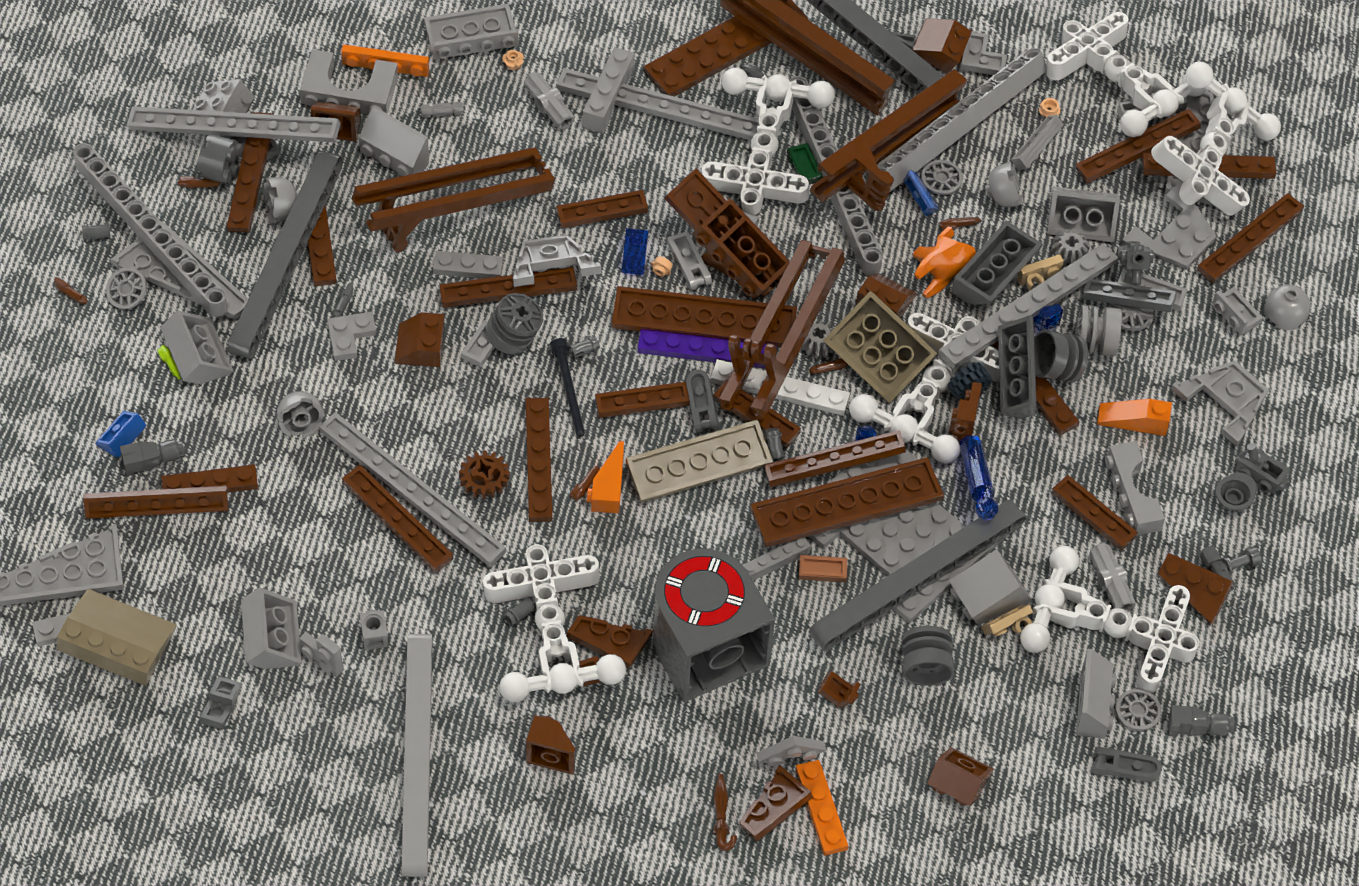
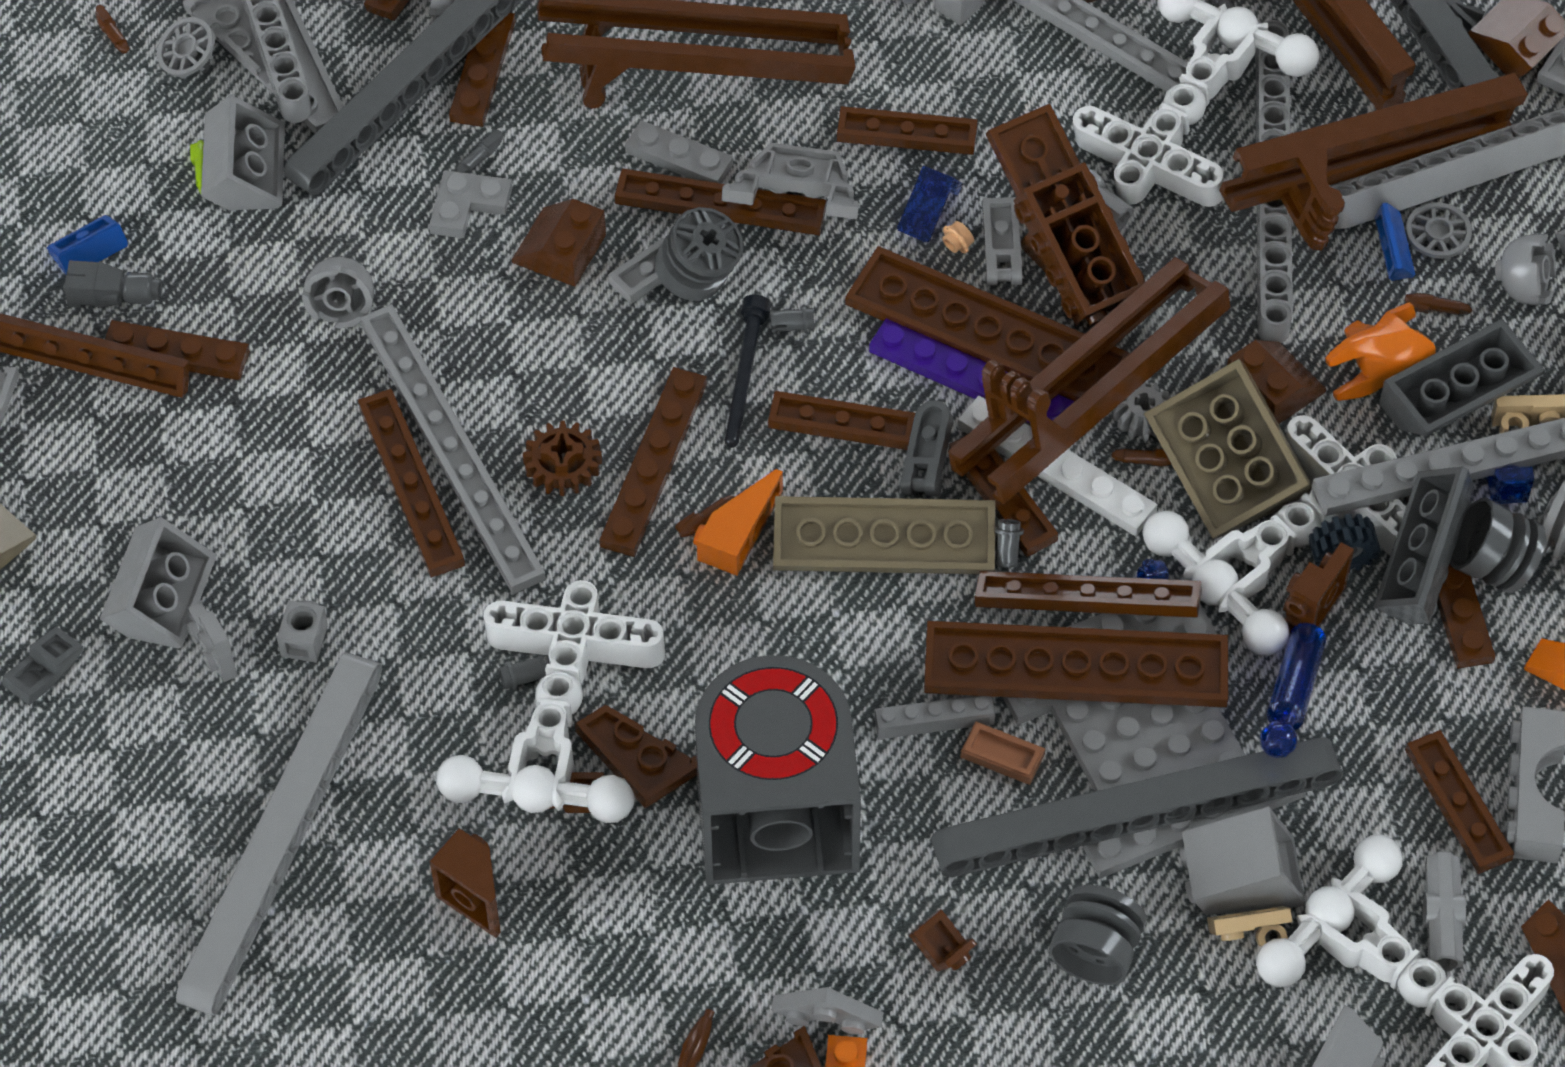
camera: 25 degrees right, 0 degrees up
(804, 162) = (1234, 136): dark green tile -> none

